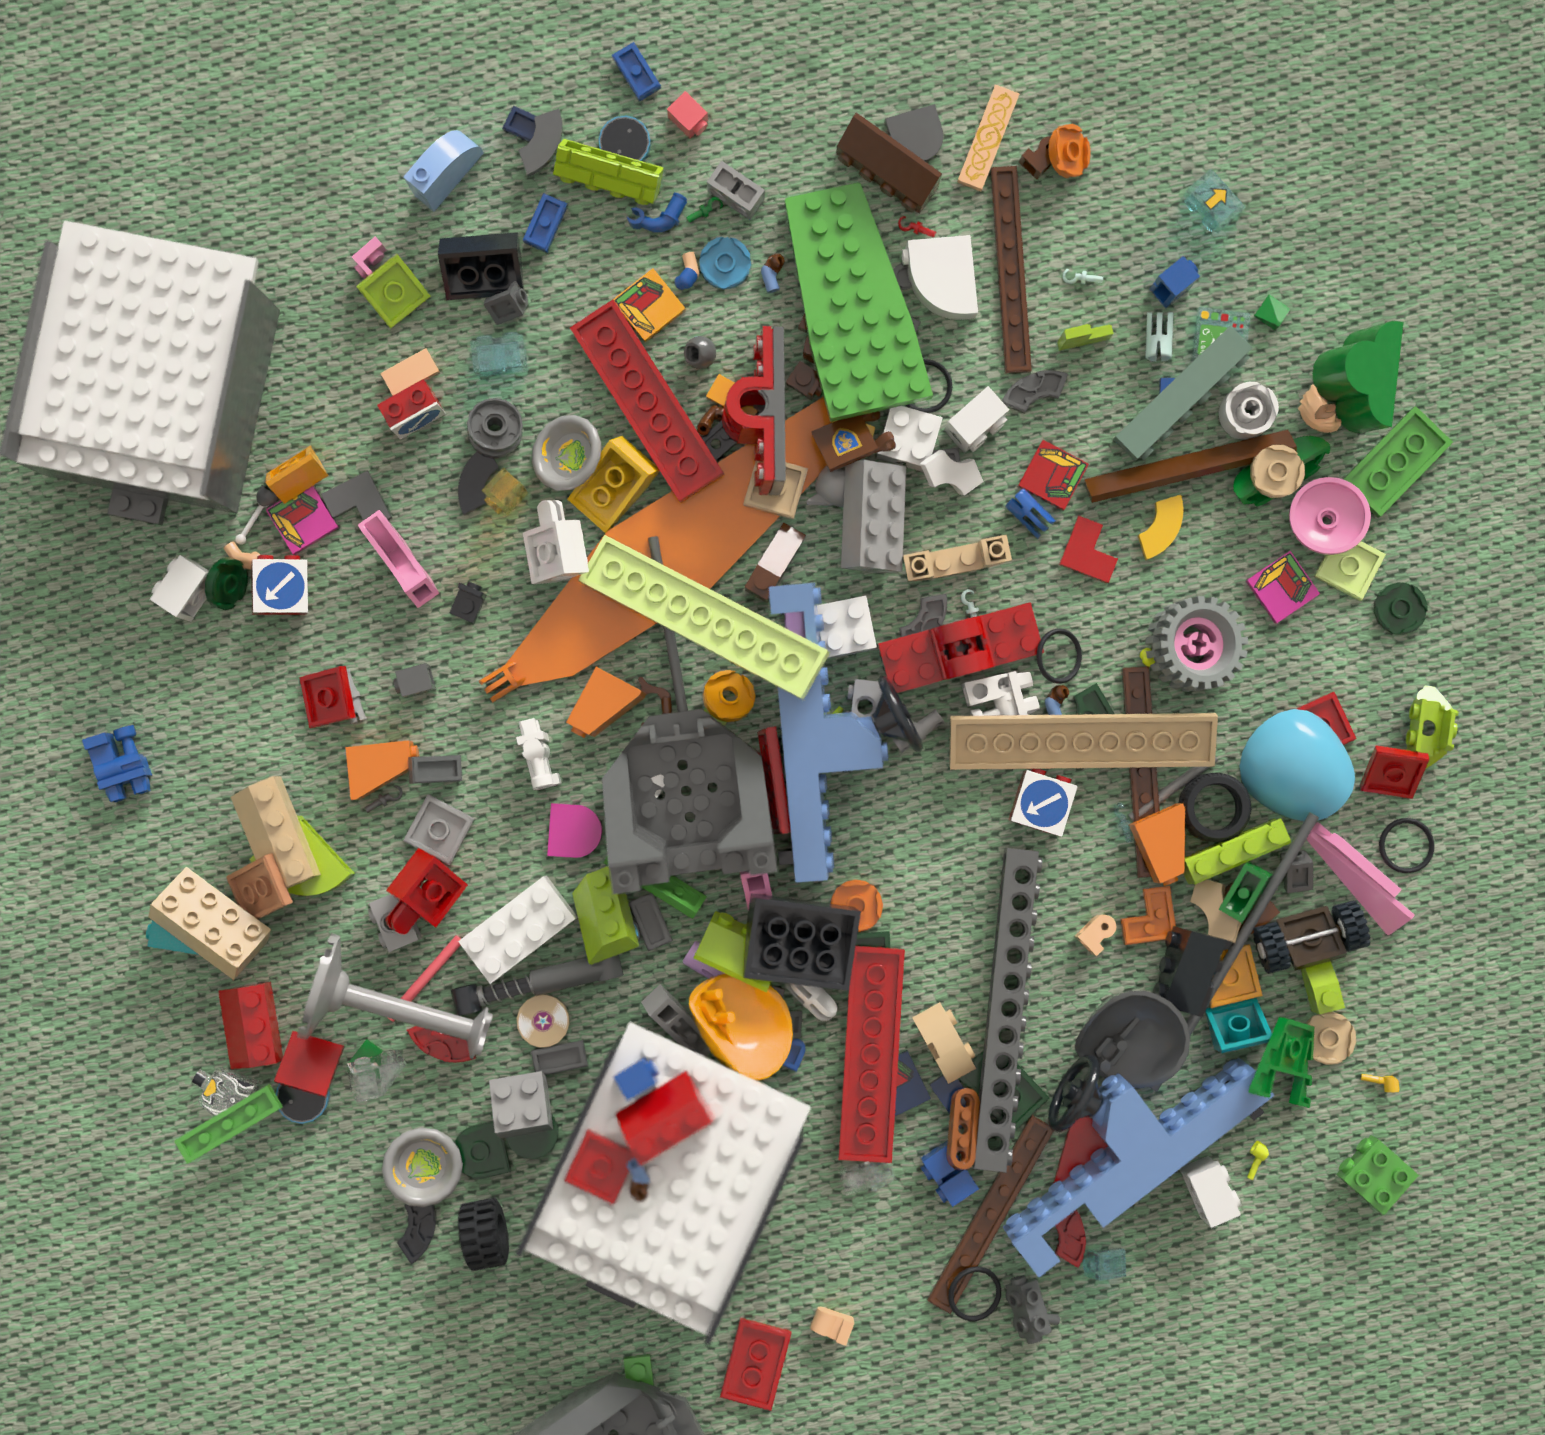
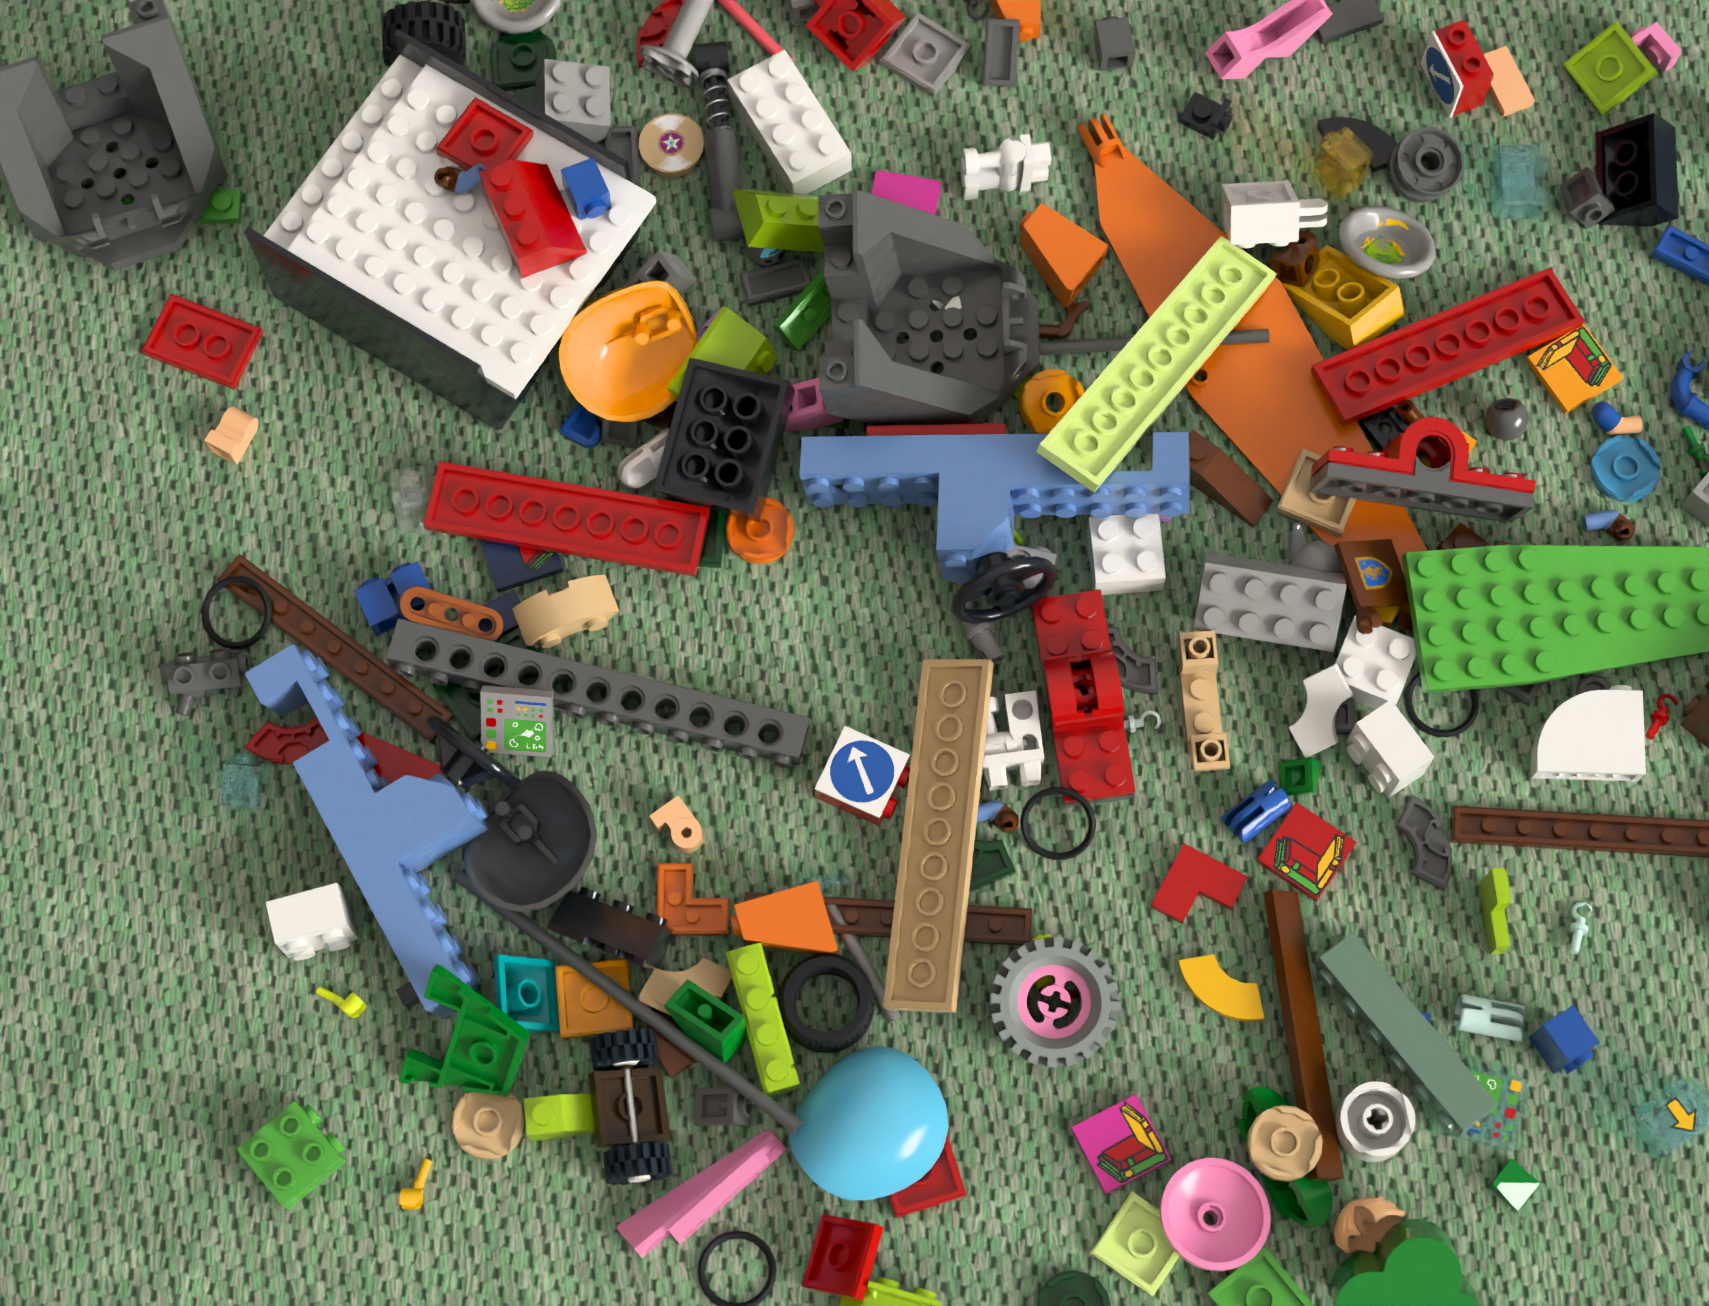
camera: 100 degrees right, 15 degrees down
(592, 520) = (1297, 261): none -> reddish brown leg
(997, 485) = (1299, 776): none -> green slope
(1036, 1065) = (517, 721): none -> light grey tile

